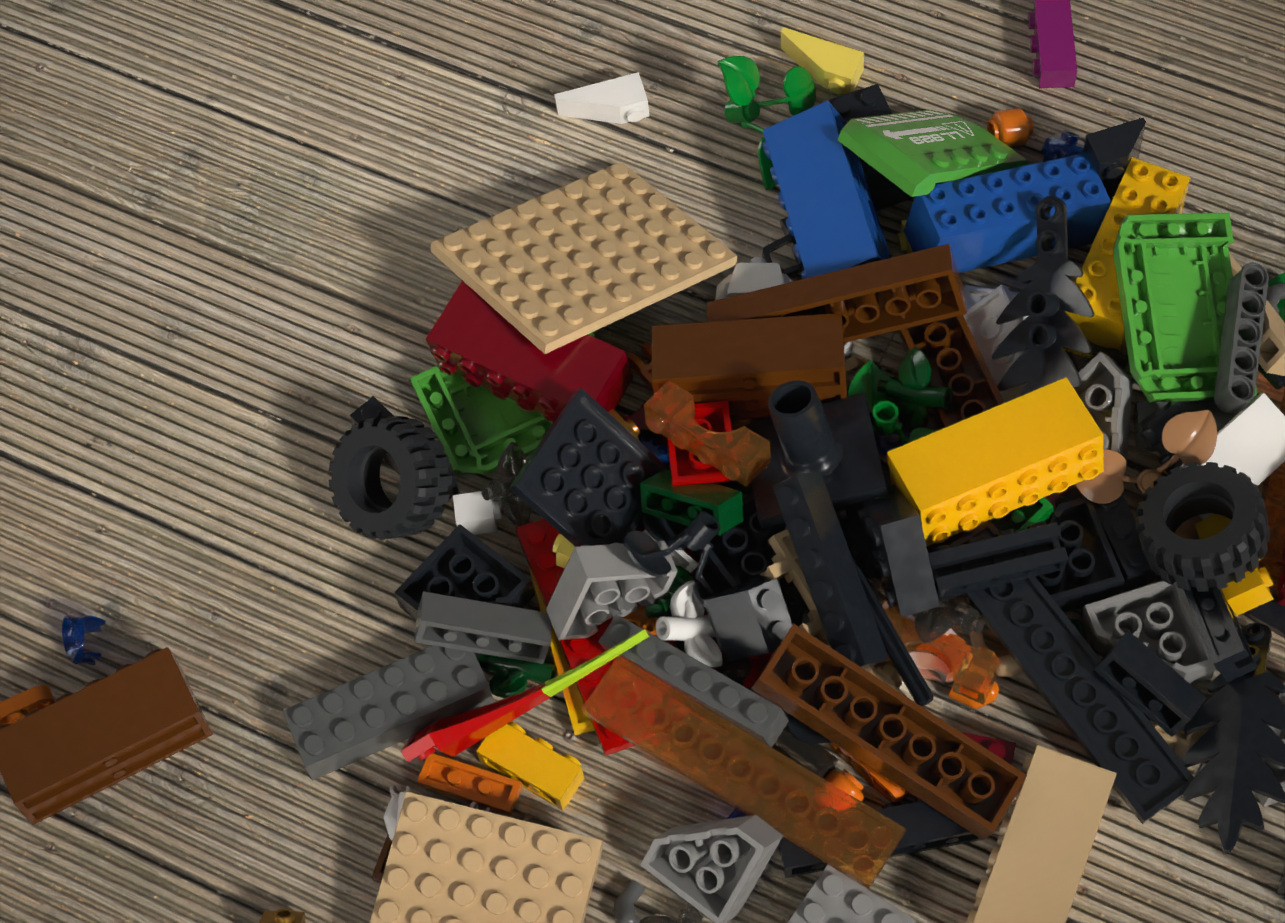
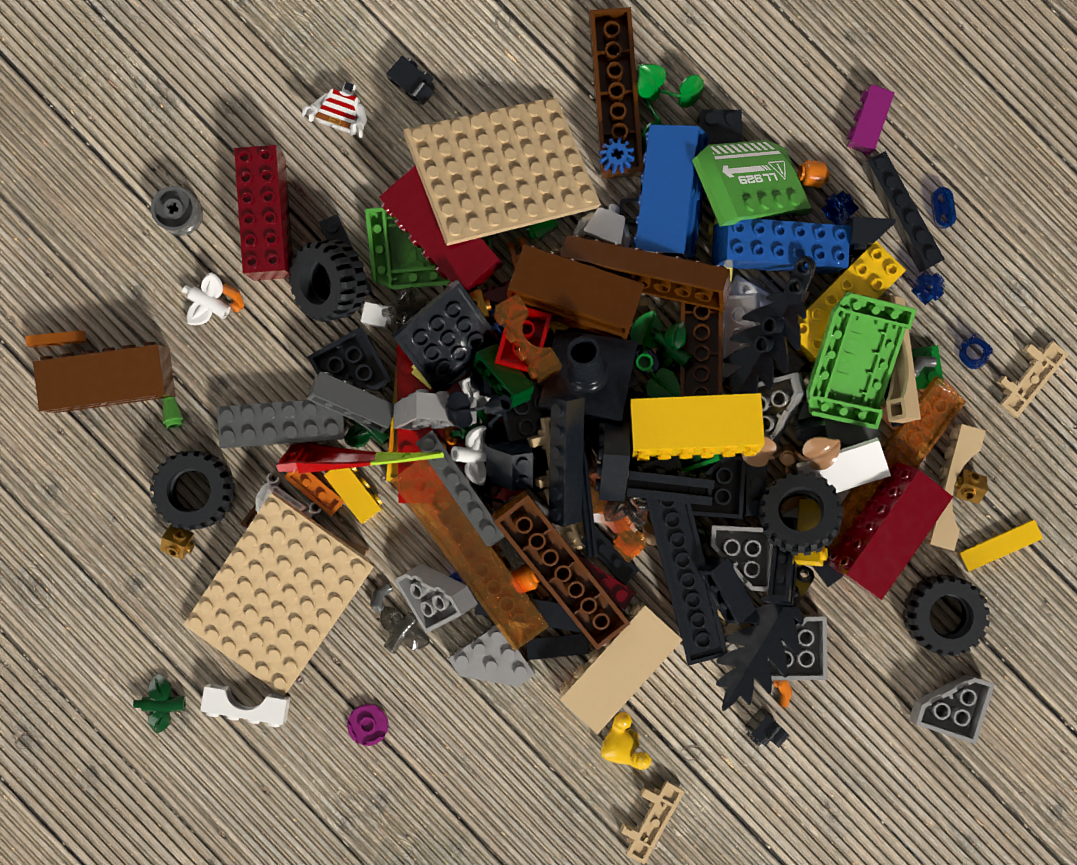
camera: 10 degrees right, 25 degrees up
(74, 634) = (108, 303): clear blue piece -> none
(139, 477) = (166, 204): none -> dark grey wheel
(215, 755) = (171, 413): none -> bright green cone
(218, 582) = (206, 300): none -> white plant
(258, 814) = (165, 490): none -> black tyre
(260, 561) = (236, 297): none -> orange arm
(268, 432) = (263, 212): none -> dark red brick
(329, 277) = (339, 110): none -> torso
(415, 209) = (411, 80): none -> black hinge
(608, 101) = (566, 47): white slope -> none
(666, 312) = (541, 229): none -> green brick
(702, 128) = (615, 85): none -> reddish brown brick
(733, 186) = (620, 149): none -> blue gear
(827, 62) = (718, 75): light yellow slope -> none
(933, 878) = (557, 646): none -> black tile
(965, 715) = (612, 559): none -> black plate
(1163, 136) = (901, 207): none -> black brick
(1206, 110) = (944, 208): none -> clear blue plate
(1236, 190) = (926, 294): none -> clear blue brick
(1242, 318) = (893, 391): dark grey beam -> none

